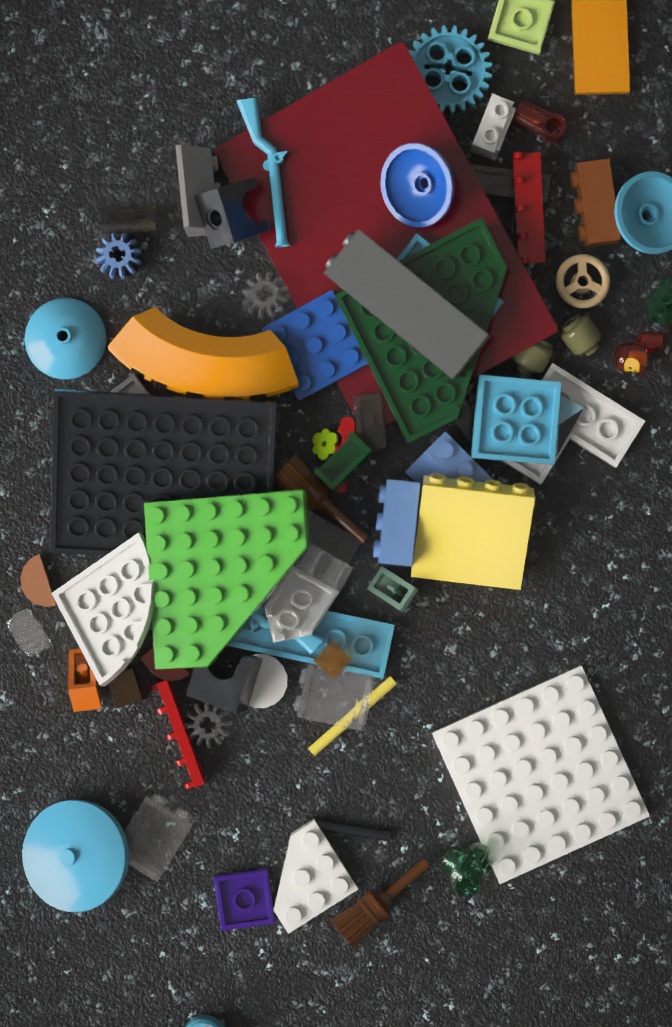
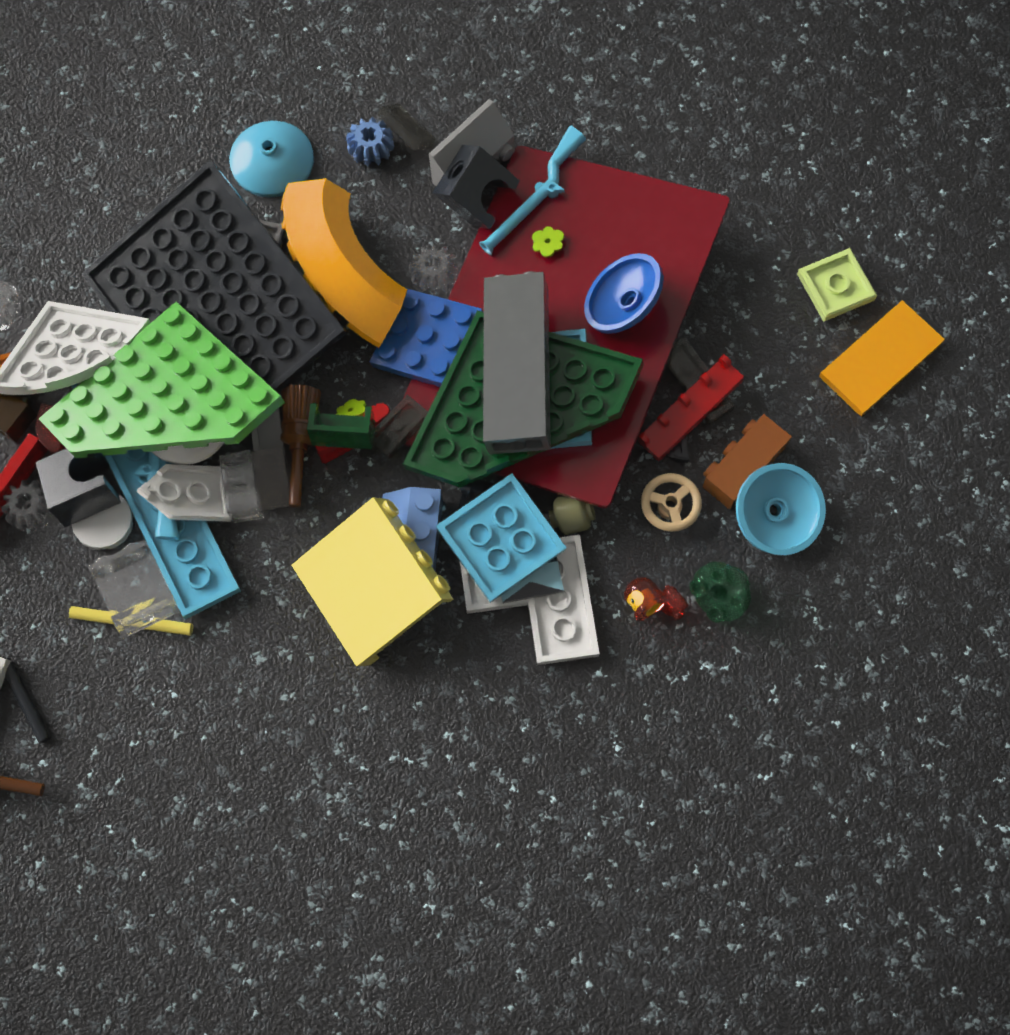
camera: 55 degrees right, 15 degrees down
(36, 583) = (50, 284): nougat tile -> none
(310, 200) = (547, 241): none -> lime plant
(332, 659) = (162, 555): clear orange brick -> none
(392, 589) = (269, 565): sand green slope -> none
(397, 522) = (323, 510): medium blue brick -> none
(451, 46) = (744, 262): medium azure gear -> none
(467, 867) = (62, 830): clear green plate -> none
(493, 127) = (730, 330): white window -> none
(537, 119) = (770, 362): clear red piece -> none
(540, 774) = (204, 830): white plate -> none
(581, 335) = (624, 539): olive head -> none

